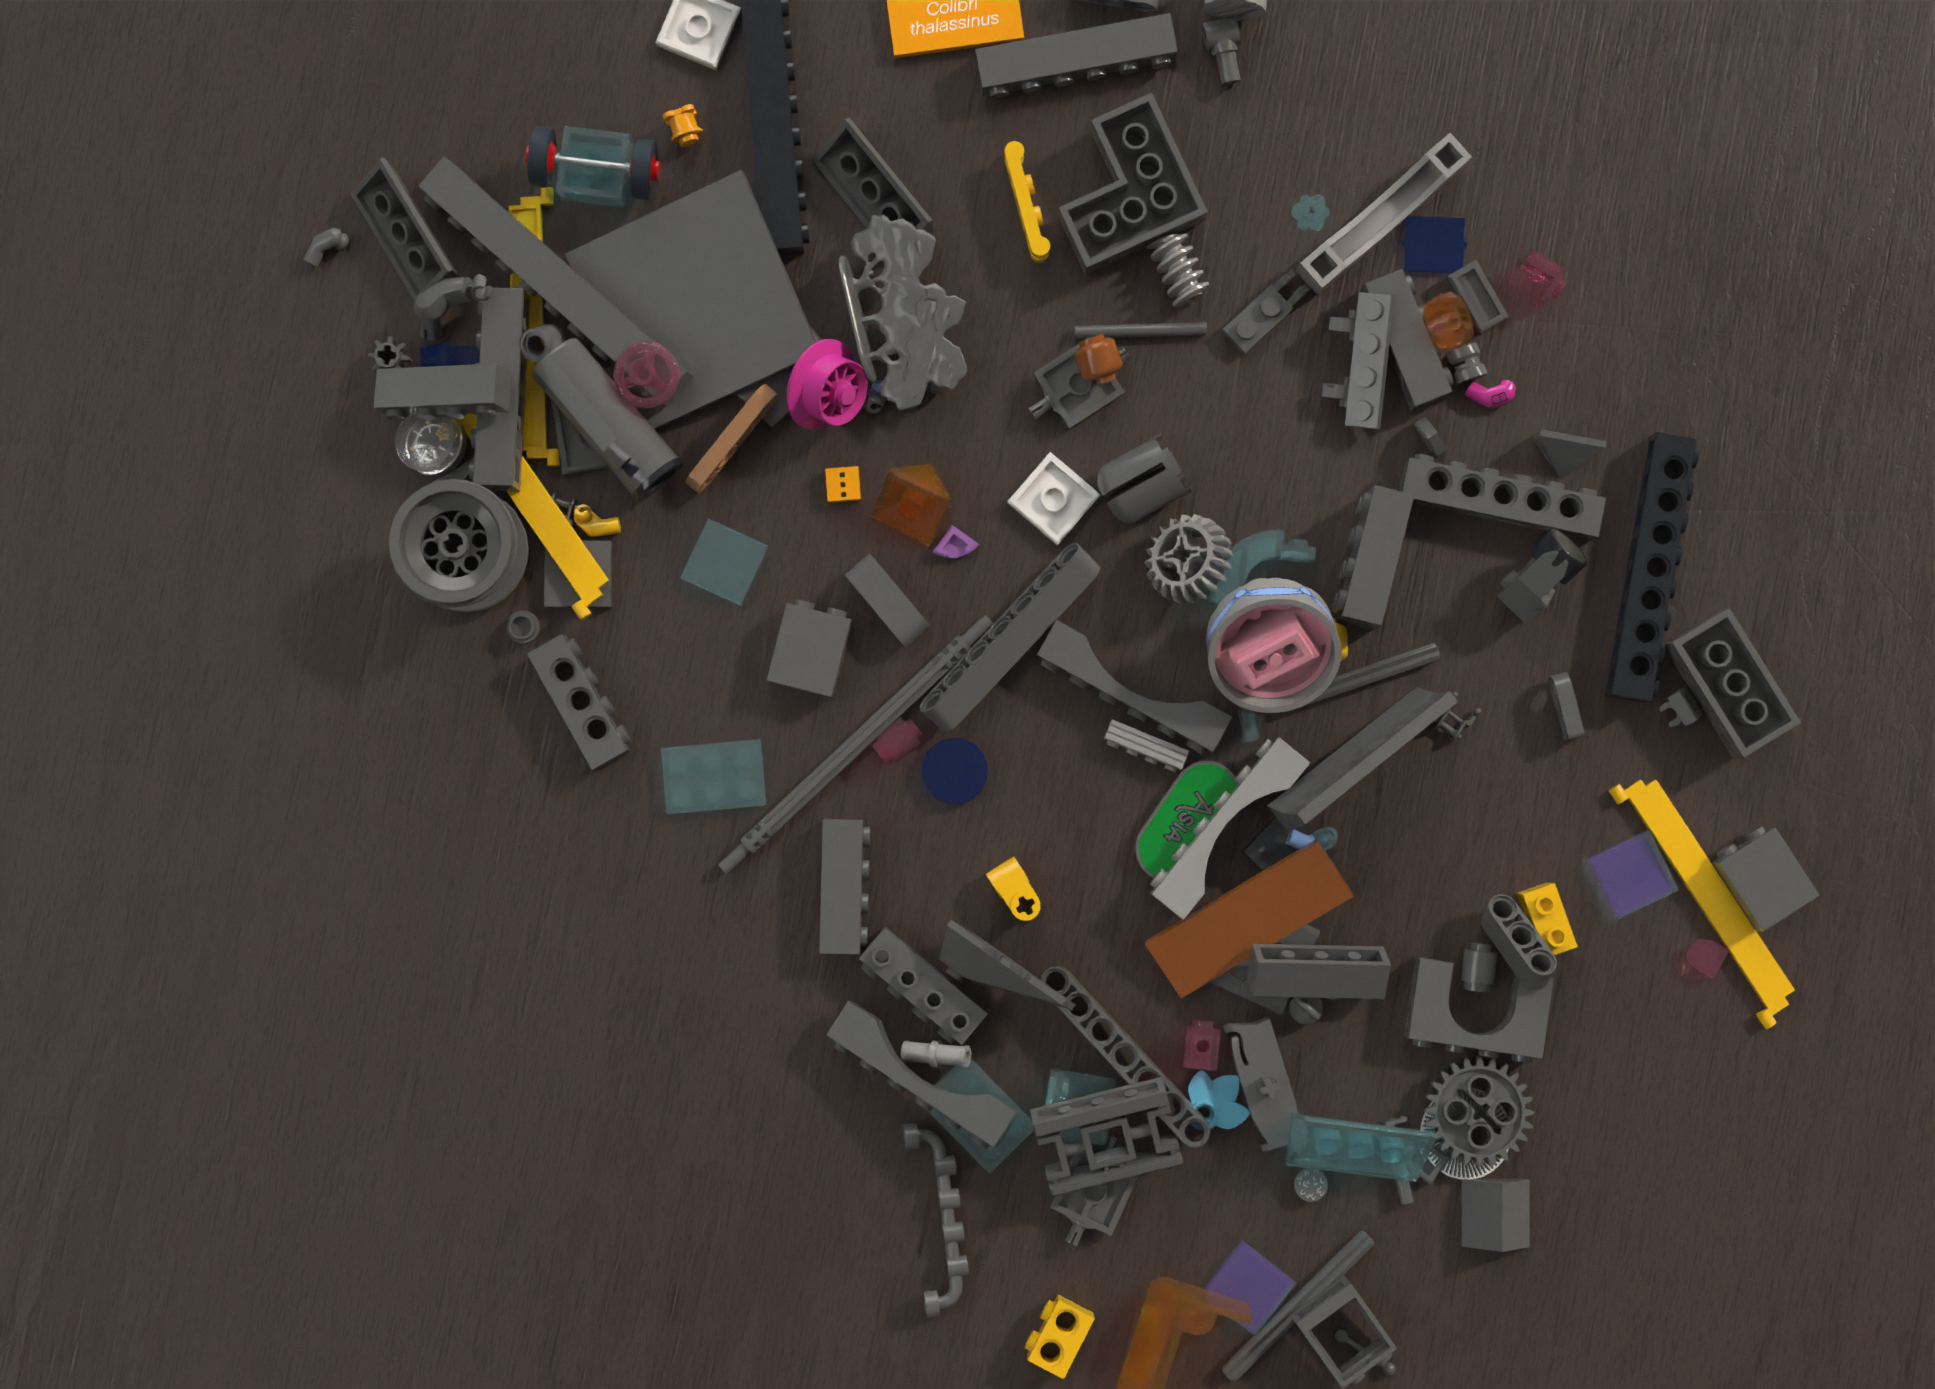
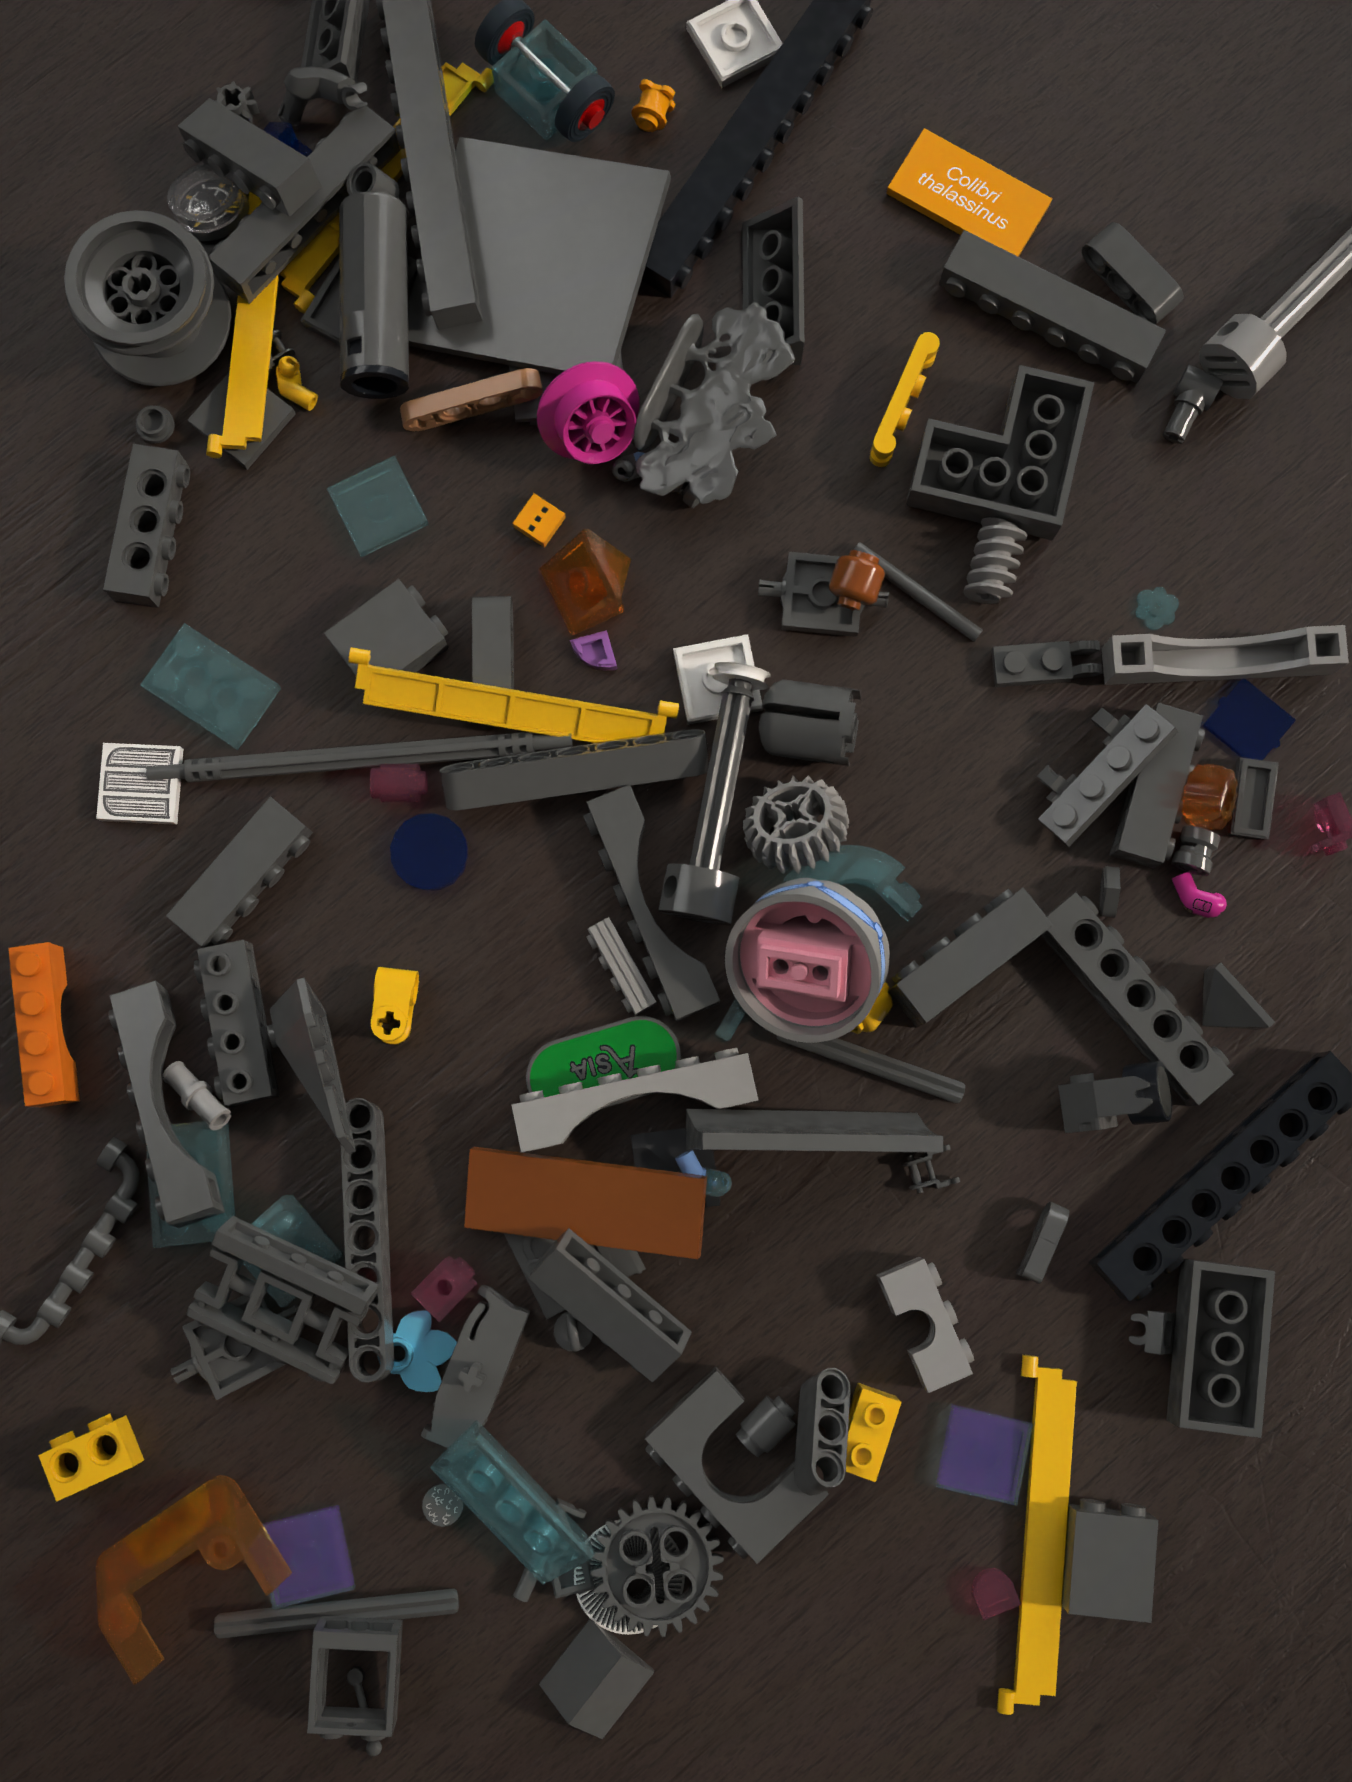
camera: 30 degrees right, 5 degrees down
(637, 366) = (425, 262): clear pink piece -> none
(713, 889) = (127, 793): none -> tile
(795, 1090) = (45, 1062): none -> orange arch
(928, 633) = (503, 706): none -> yellow piece
(1159, 652) = (699, 889): none -> dark grey piece
(1557, 832) = (942, 1355): none -> light grey arch

